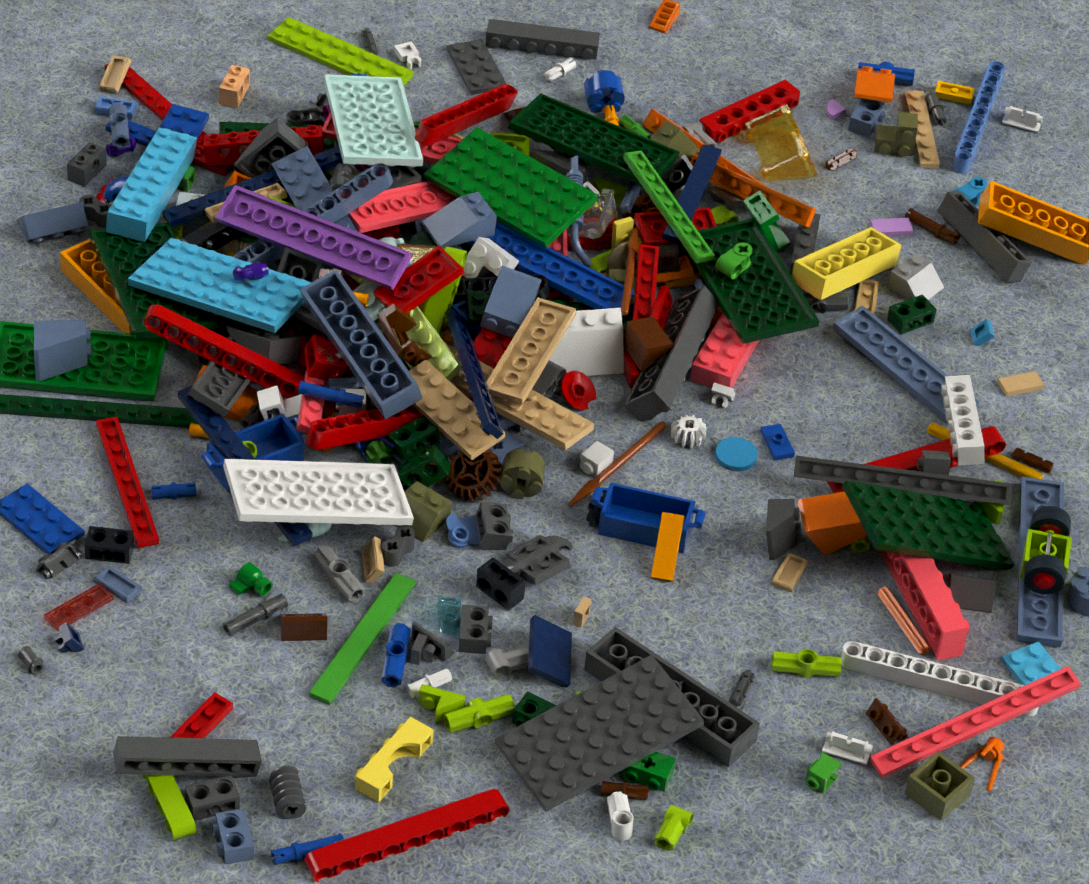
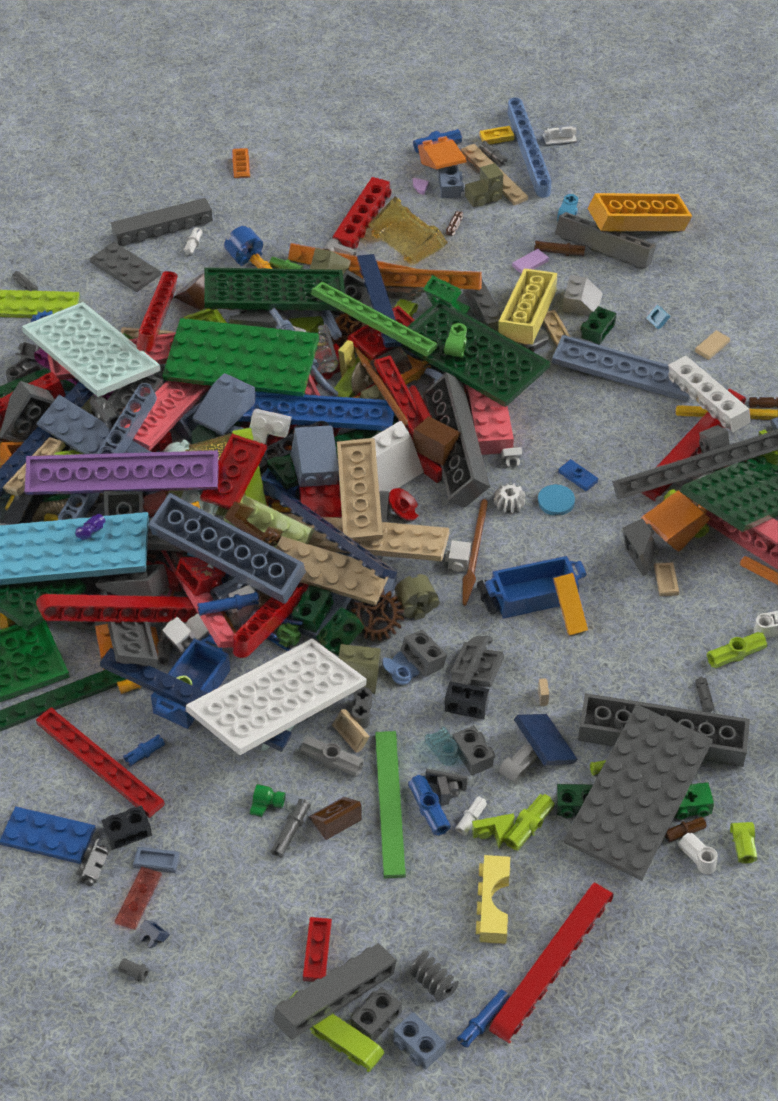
camera: 25 degrees left, 5 degrees up
(408, 53) = (64, 278): white plate -> none

